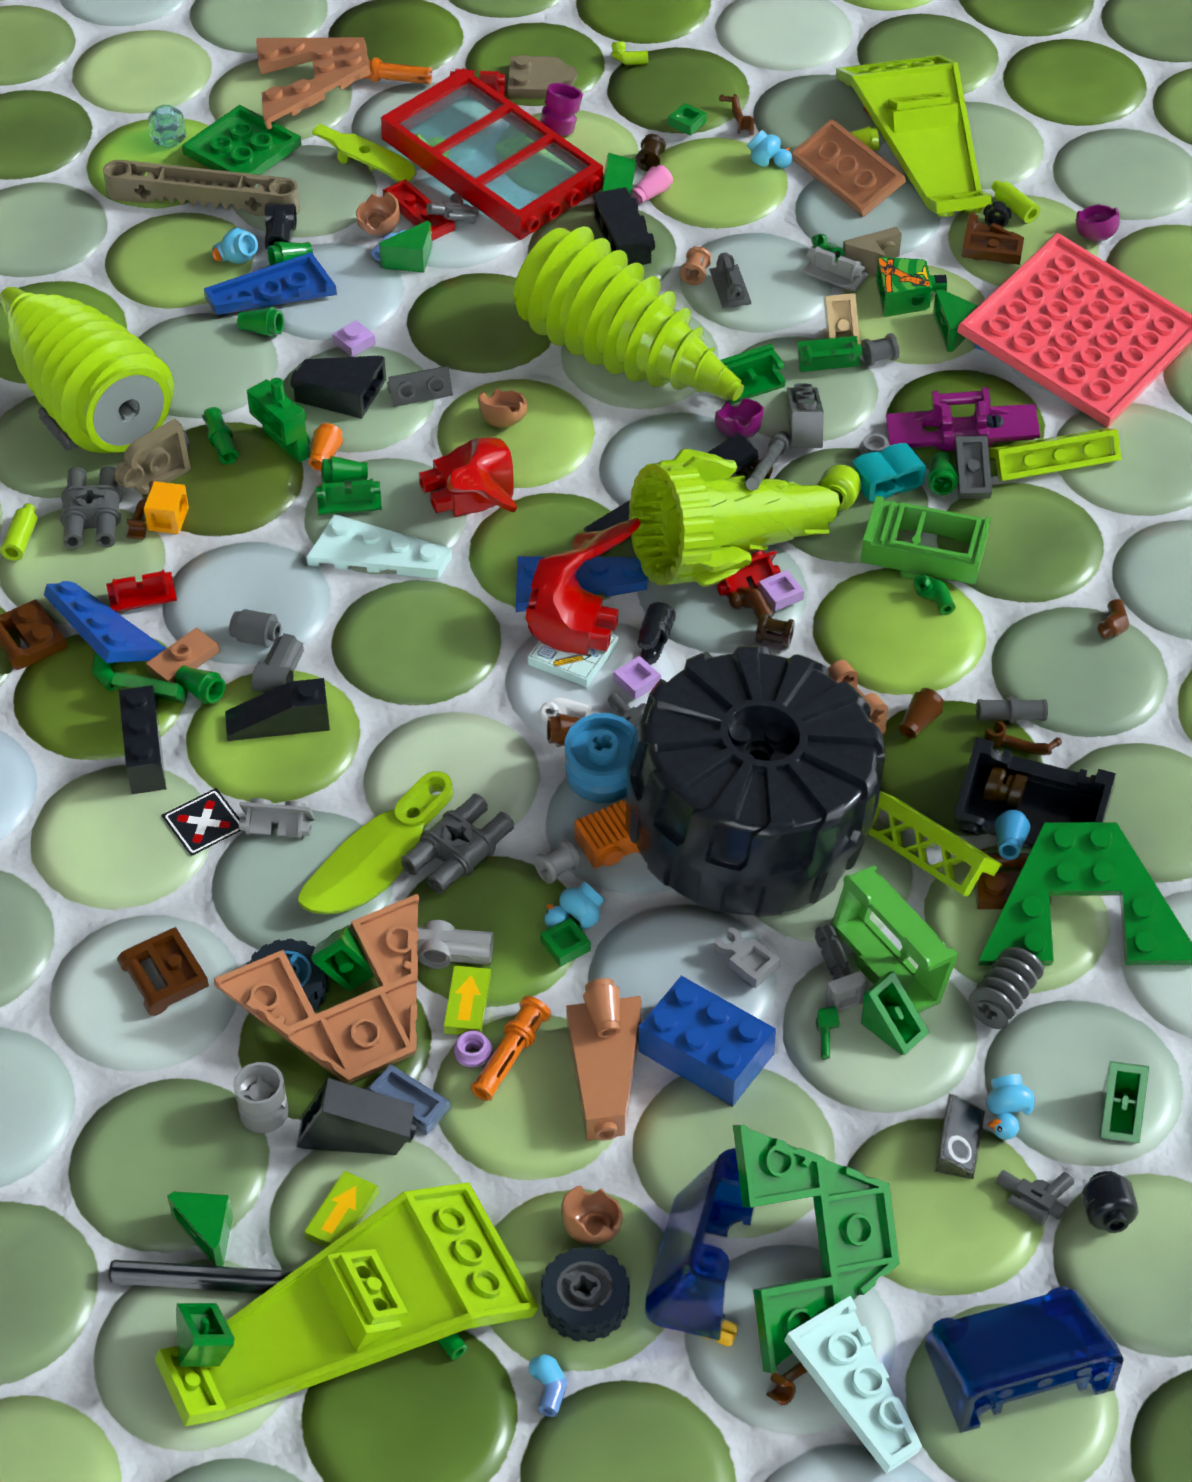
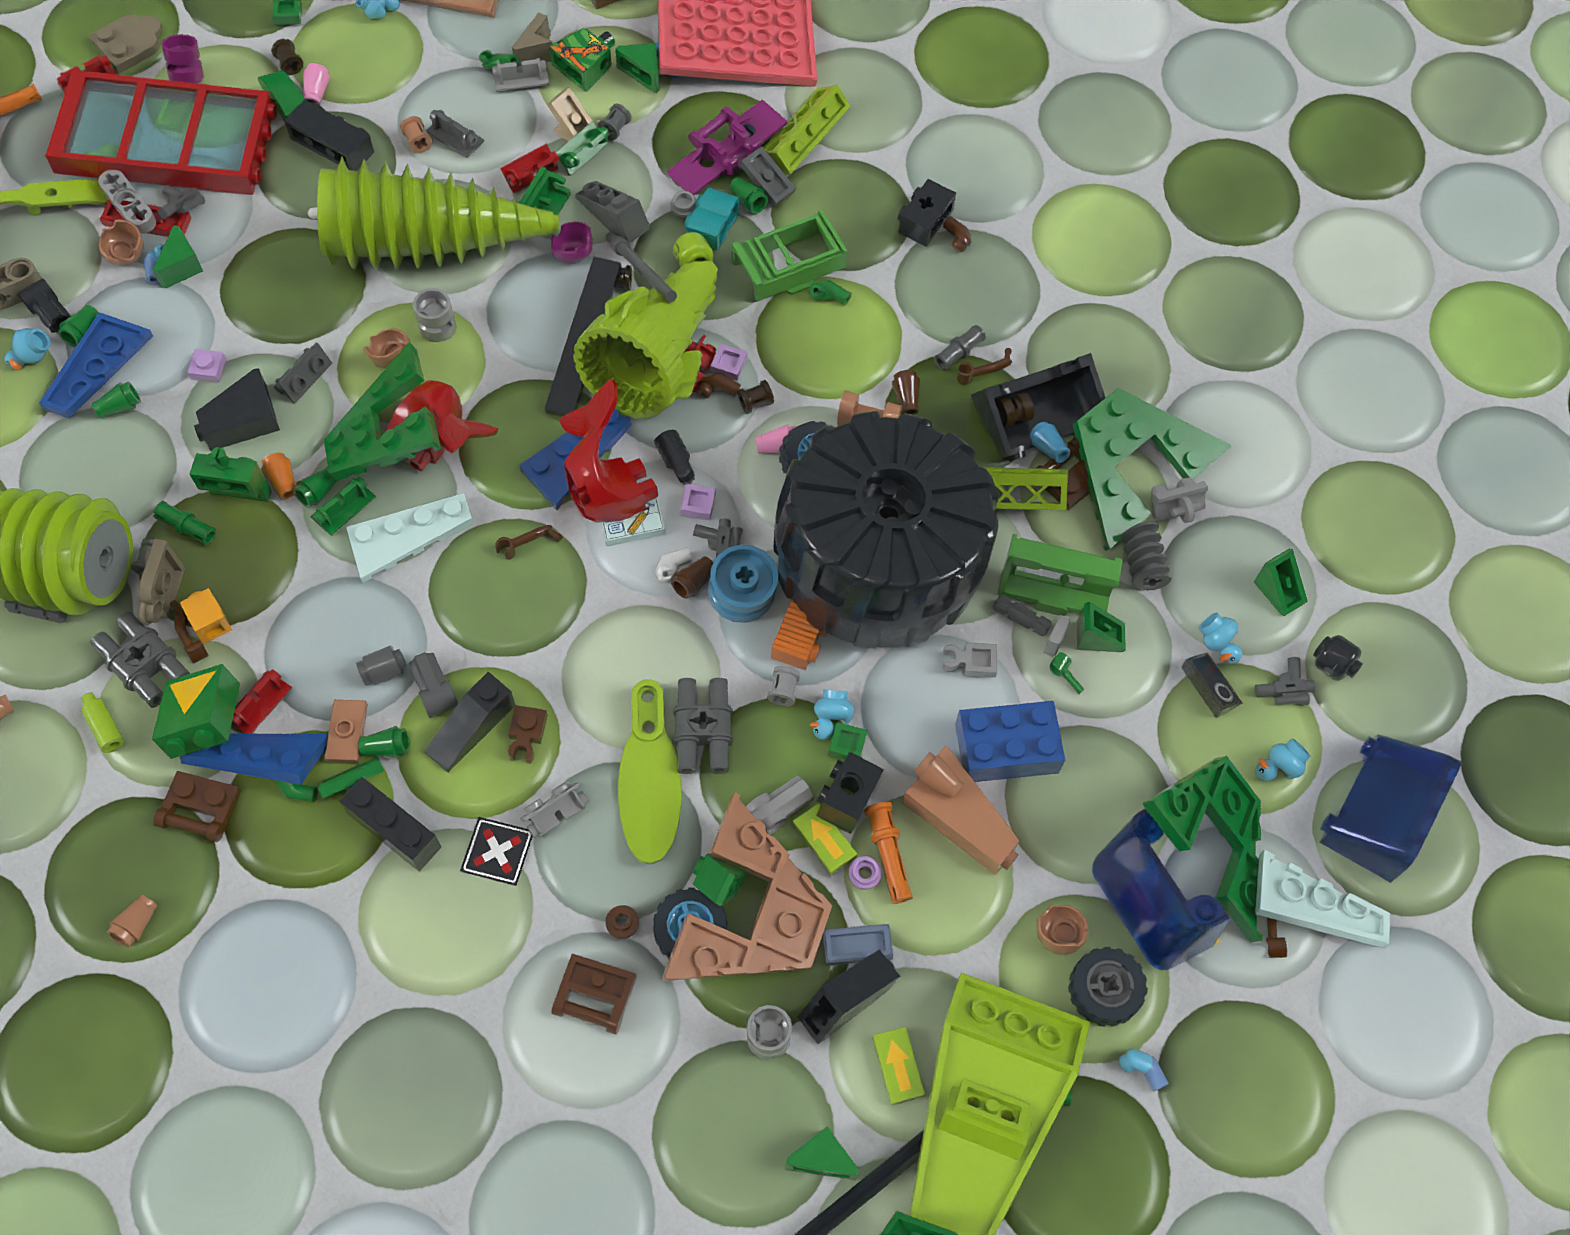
camera: 45 degrees left, 15 degrees up
(86, 560) = (196, 711): none -> green brick
(243, 945) = (626, 931): none -> reddish brown plate
(316, 749) = (526, 728): none -> reddish brown plate
(418, 194) = (127, 191): none -> light grey beam
(434, 450) = (358, 436): none -> green wing
(444, 612) = (524, 538): none -> reddish brown piece
(541, 976) = (842, 808): none -> black brick
(564, 403) = (434, 315): none -> light grey wheel
(782, 340) = (524, 169): none -> red hinge
(959, 1242) = (1287, 757): none -> medium azure animal
(1093, 967) = (1181, 501): none -> light grey hips
(1097, 581) = (926, 212): none -> black brick

